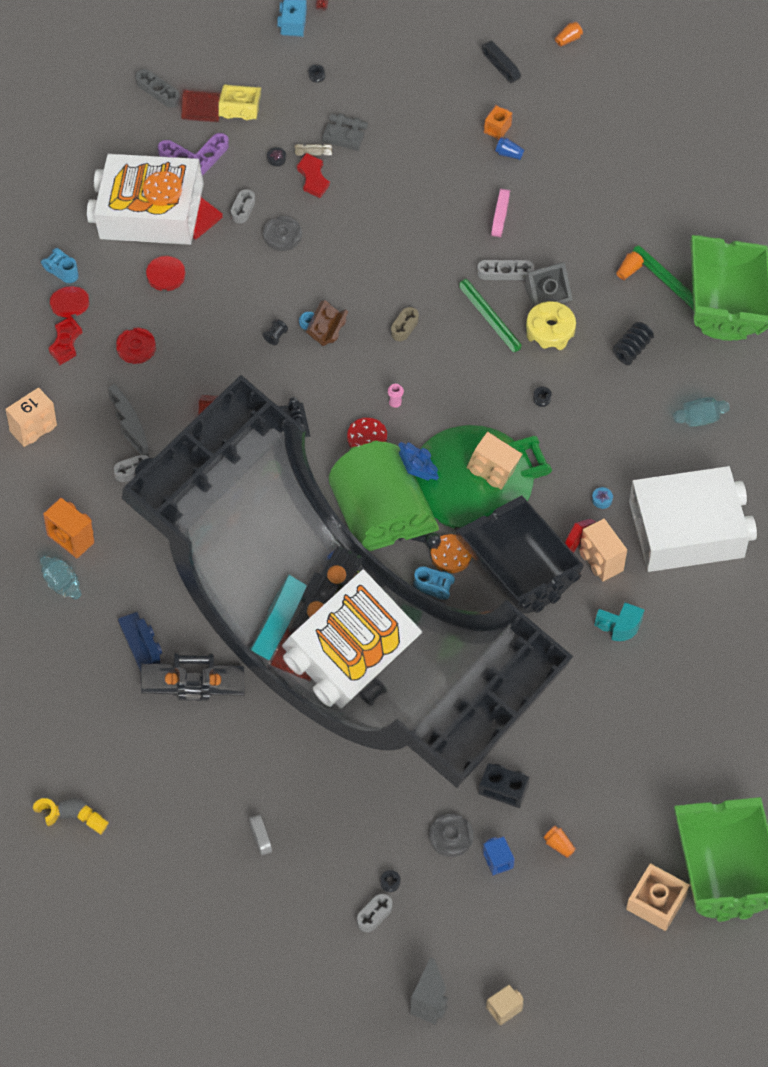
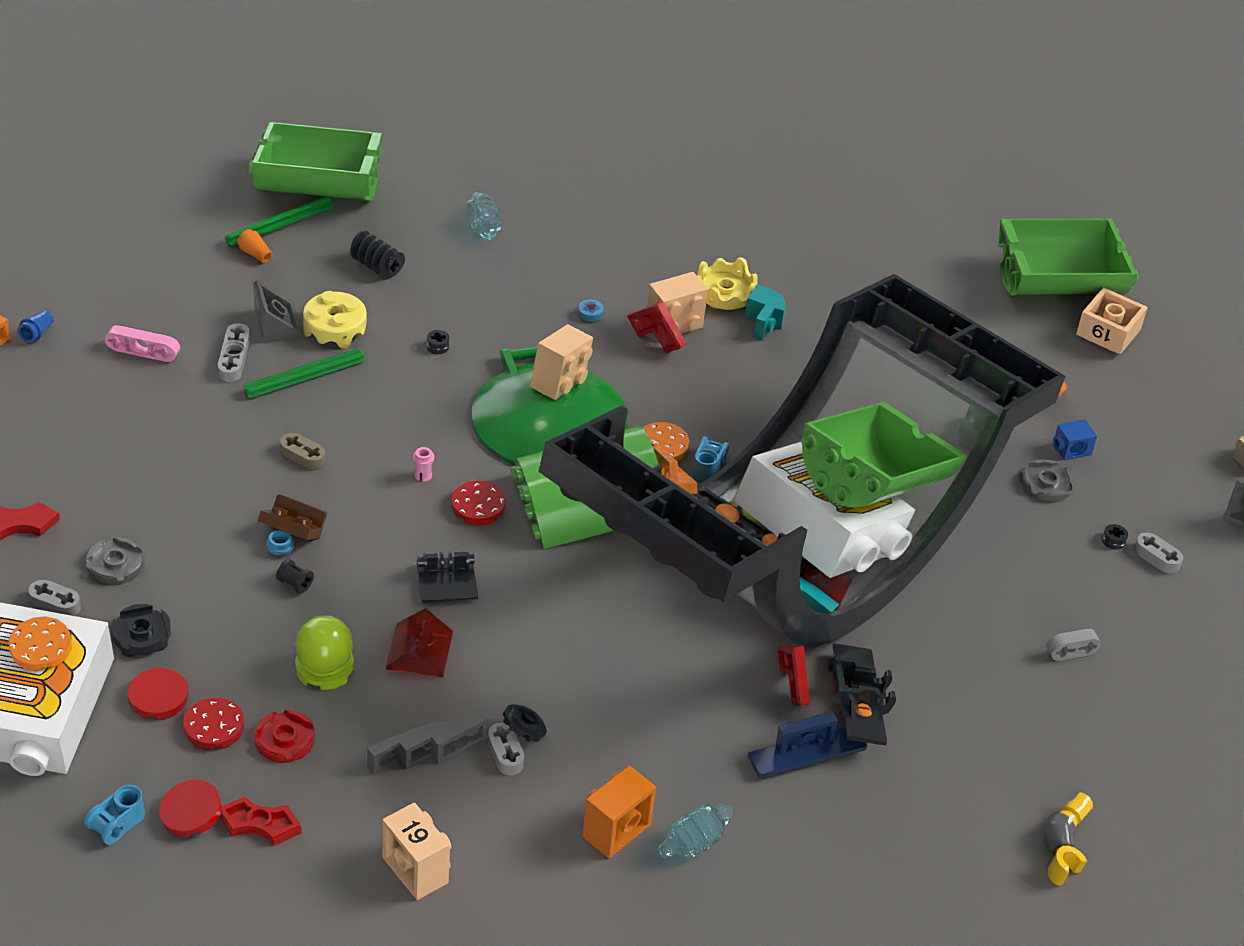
camera: 90 degrees left, 15 degrees down
(142, 306) = (213, 723): none -> red tile
(198, 636) = (792, 662): none -> red tile
(199, 353) = (324, 652): none -> lime tile
(218, 264) = (133, 643): none -> black plate
(375, 652) = (874, 455): none -> bright green cylinder
(389, 546) = (673, 472): none -> orange fence
(418, 461) = (535, 443): blue piece -> none
(522, 555) = (683, 367): black cylinder -> none
(651, 579) = (730, 275): none -> light yellow plate
(691, 518) = (635, 235): white brick -> none

